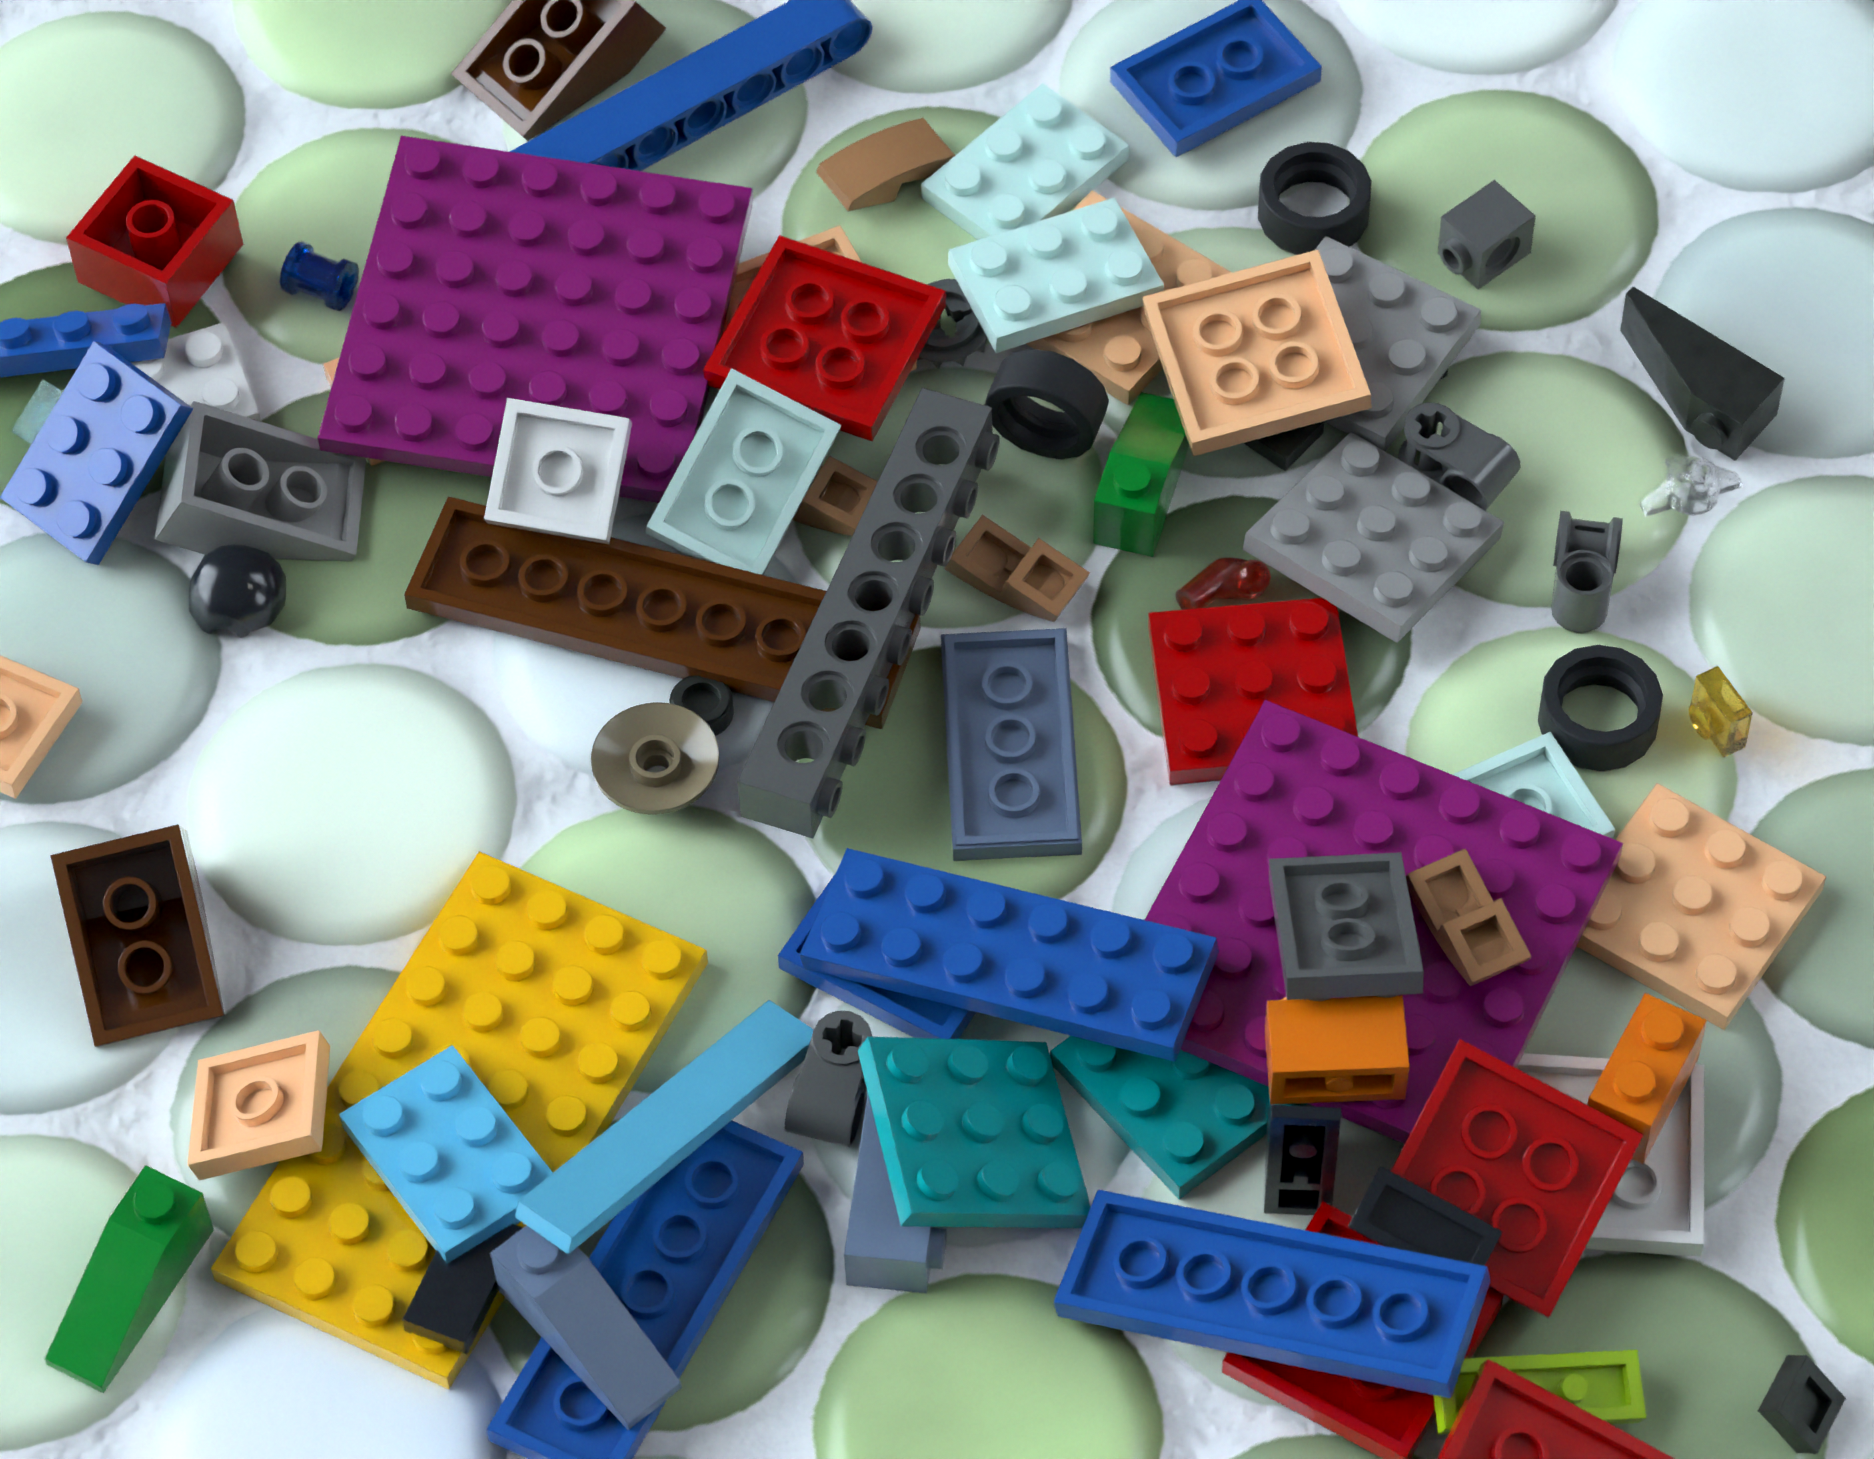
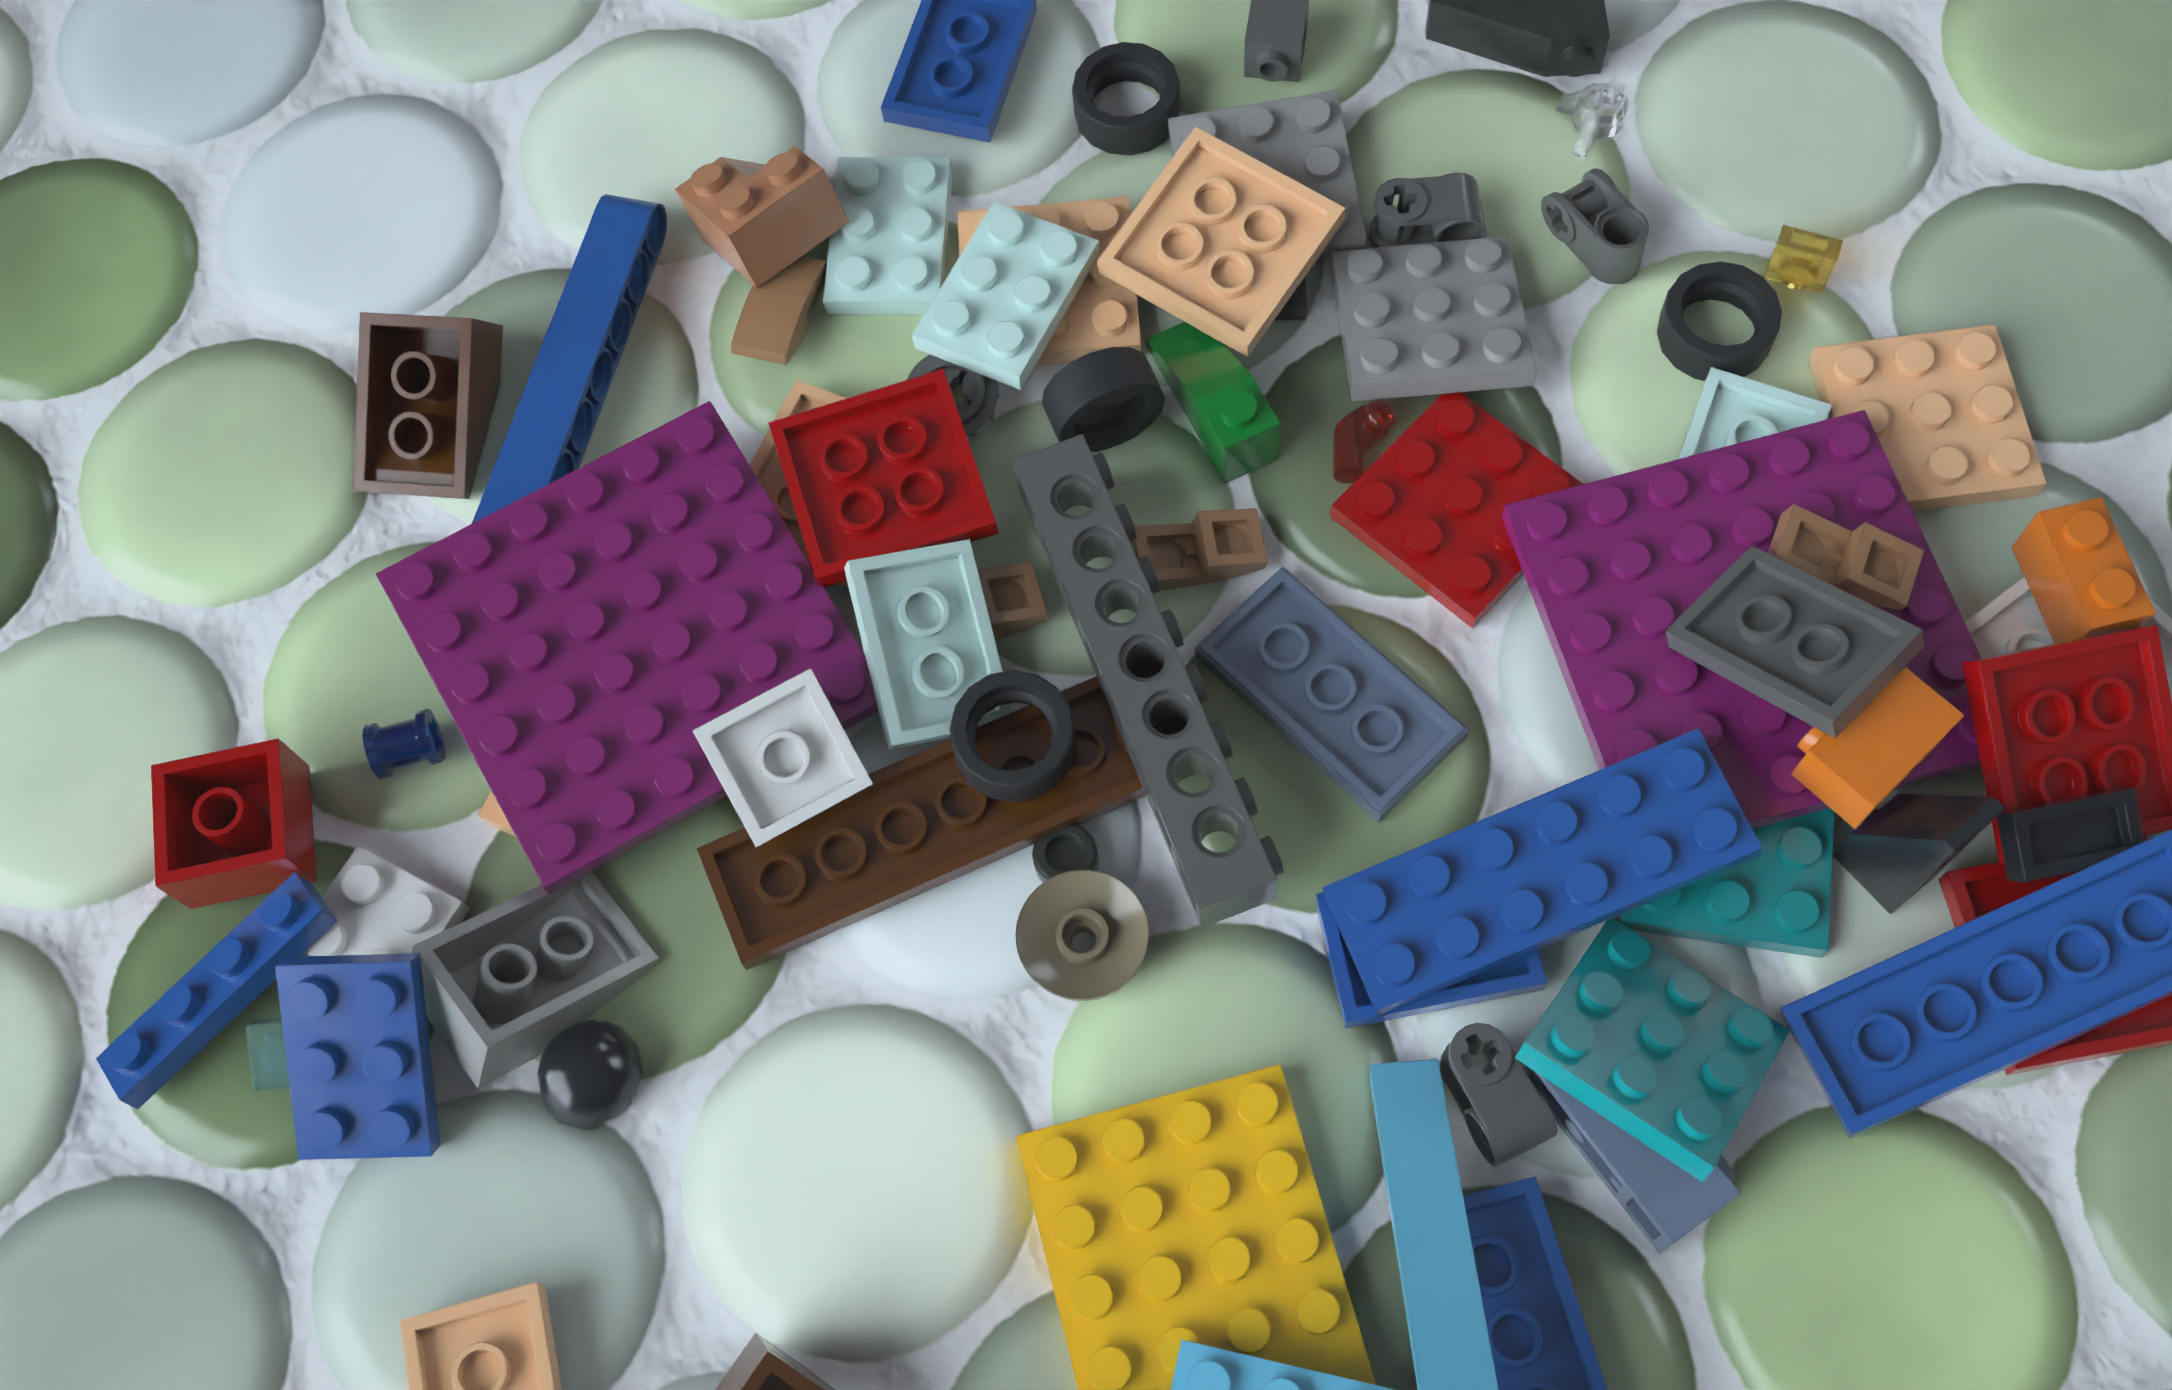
camera: 35 degrees left, 10 degrees up
(725, 543) = (1005, 689): none -> black tyre
(934, 79) = (762, 213): none -> nougat slope

